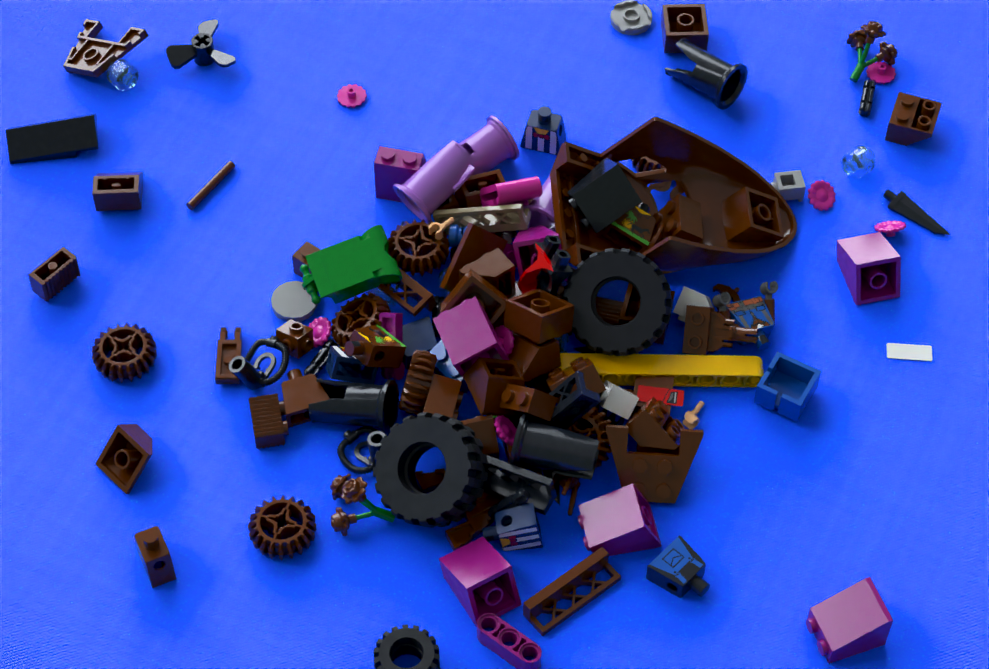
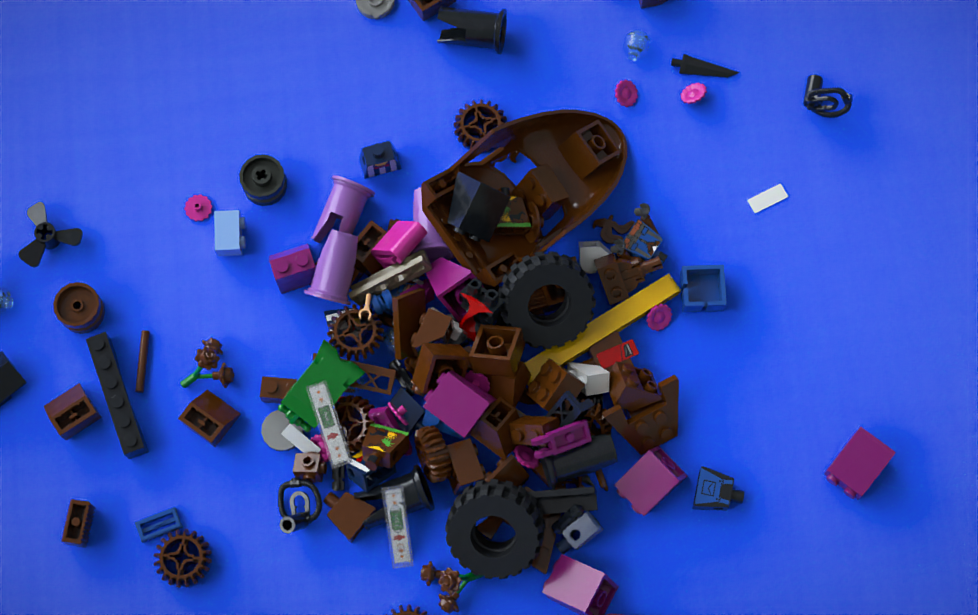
camera: 30 degrees left, 20 degrees up
(111, 320) = (141, 532): none -> blue tile
(157, 219) = (116, 396): none -> black arch
(187, 113) = (79, 308): none -> reddish brown wheel
(225, 353) = (265, 511): reddish brown hinge -> none
(234, 254) = (209, 417): none -> reddish brown slope
(267, 420) = (335, 550): reddish brown brick -> none
(273, 200) = (208, 359): none -> reddish brown plant
(302, 311) = (299, 440): none -> white sticker
(336, 299) = (329, 424): none -> clear tile
(339, 425) = (397, 526): none -> clear tile
(362, 122) = (228, 233): none -> light blue brick
(373, 442) = (437, 527): black piece -> none
(410, 329) = (399, 412): none -> dark pink piece
(425, 98) = (263, 180): none -> pearl dark grey wheel
(549, 413) = (563, 439): none -> magenta hinge
(564, 585) = (642, 553): reddish brown fence -> none
(691, 419) = (646, 356): light nougat hand -> none
(726, 391) = (659, 317): none -> dark pink piece
(789, 185) = (597, 94): light grey brick -> none
(870, 267) = (700, 141): slope -> none

